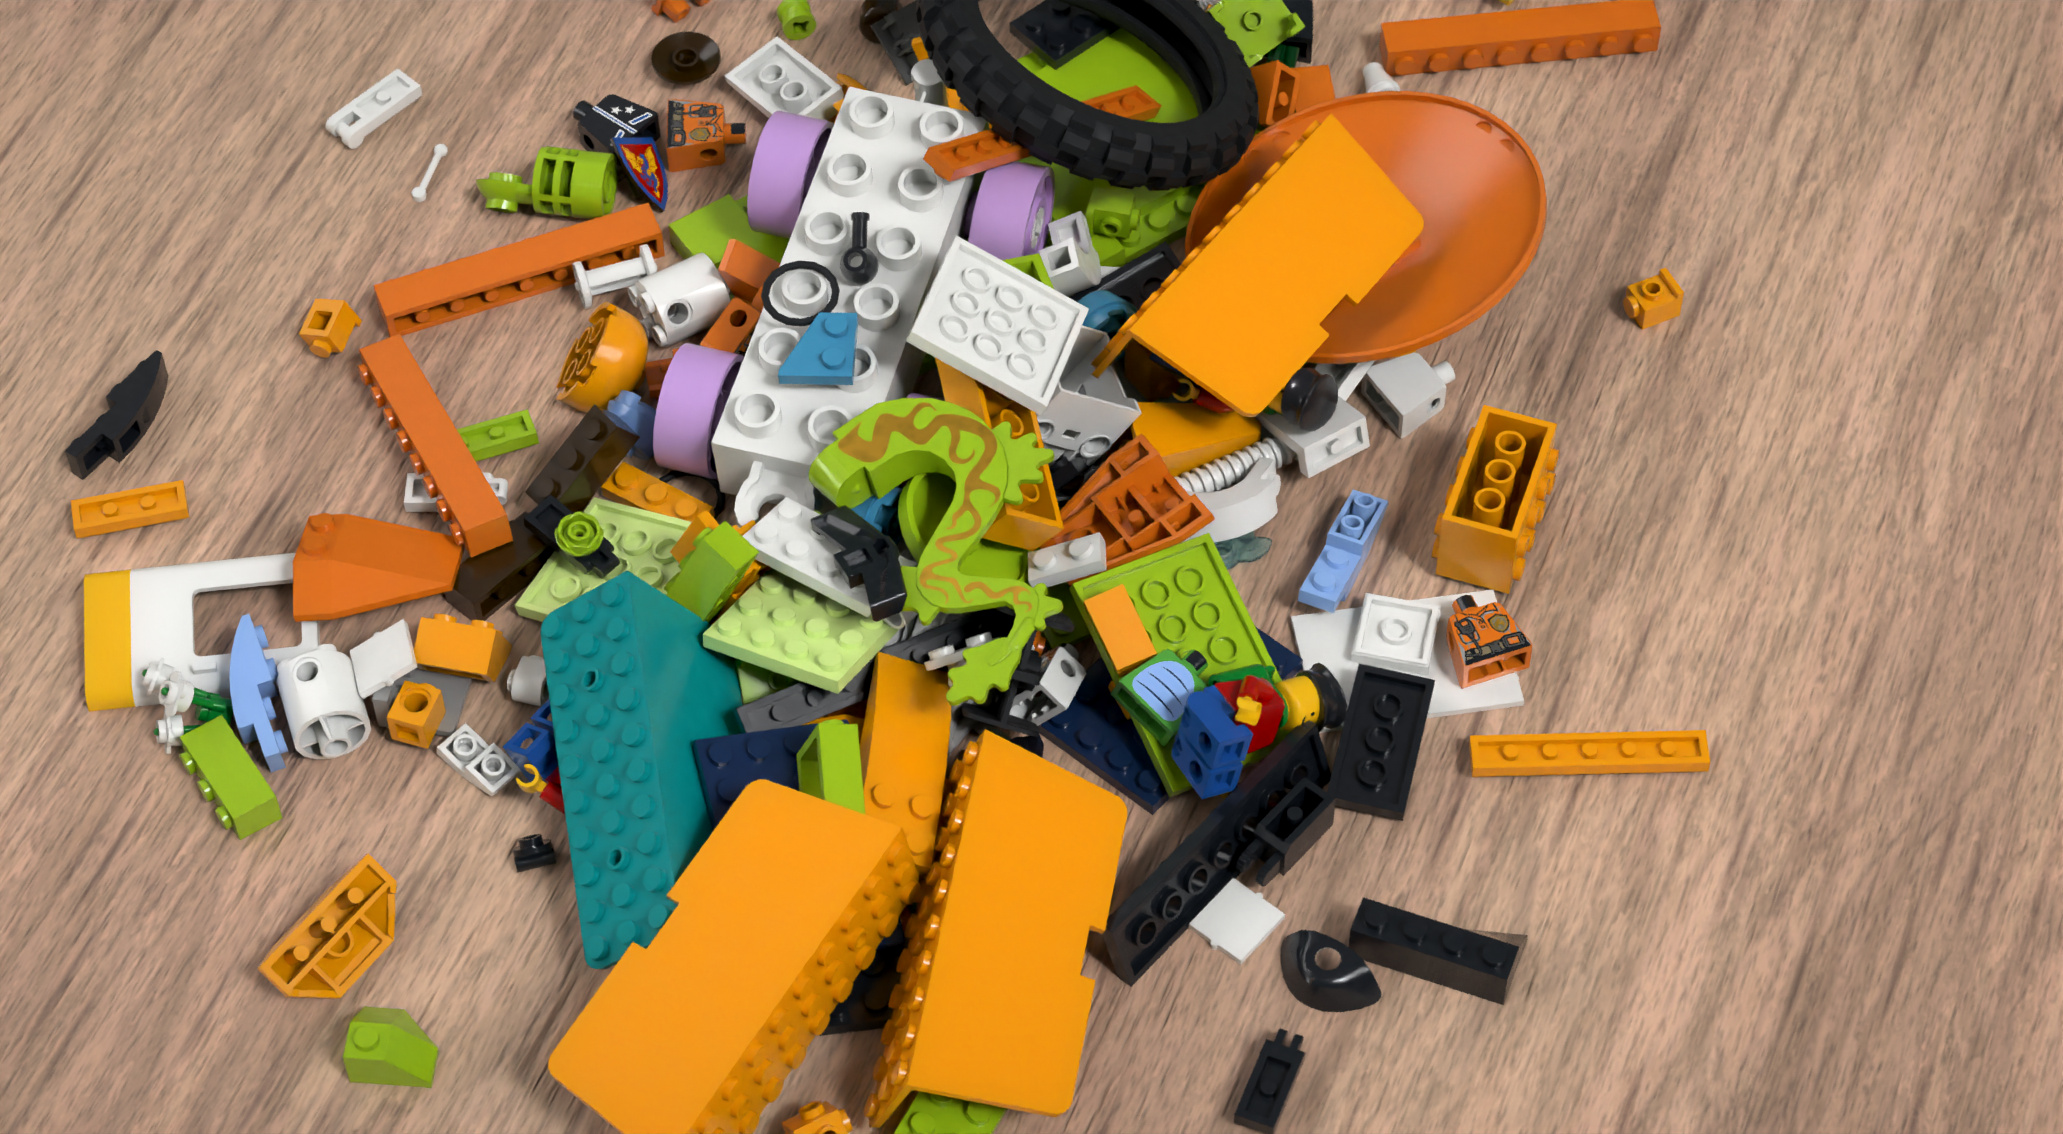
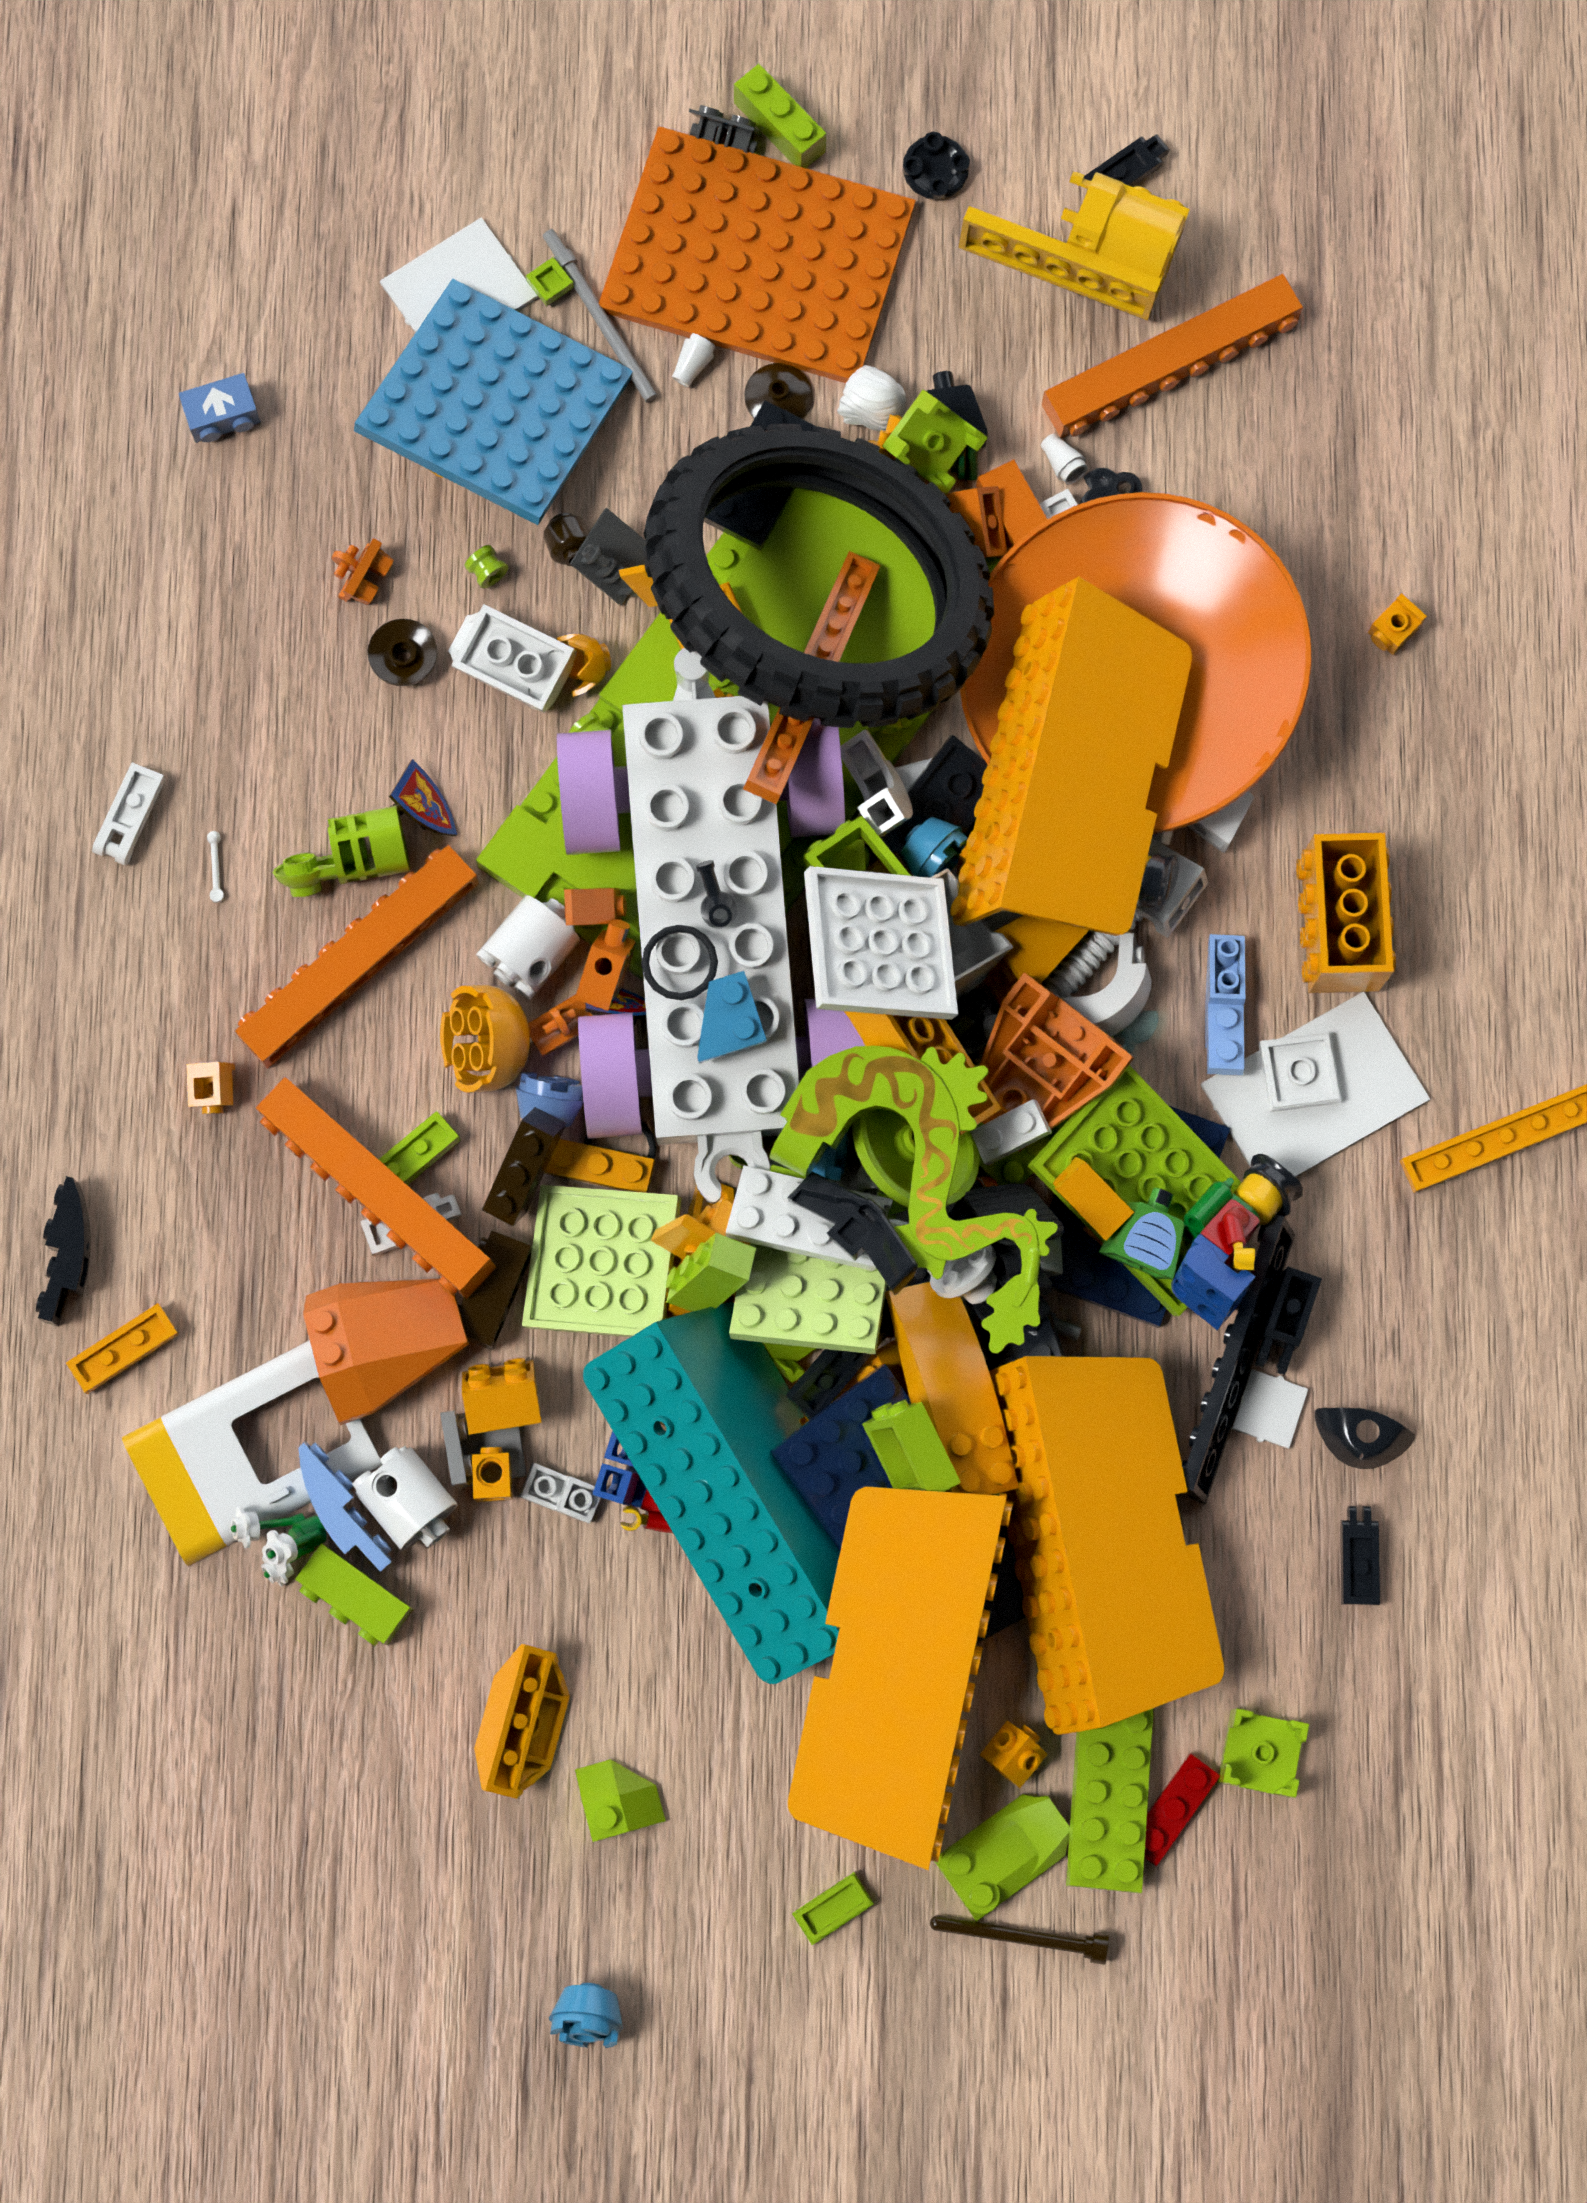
camera: 25 degrees left, 25 degrees up
(383, 658) = (443, 1441): white piece -> none
(529, 681) = (573, 1399): white plate -> none
(533, 853) = (650, 1567): black plate -> none
(544, 521) = (551, 1249): black hinge -> none
(577, 524) = (566, 1242): lime plate -> none
(612, 276) = (451, 934): white hose -> none
(613, 119) = (372, 761): black torso -> none
(699, 134) = (455, 739): orange torso -> none
(1380, 741) = (1334, 1207): black plate -> none
(1437, 952) = (1464, 1377): black wedge -> none
(1485, 642) = (1380, 1057): orange torso -> none

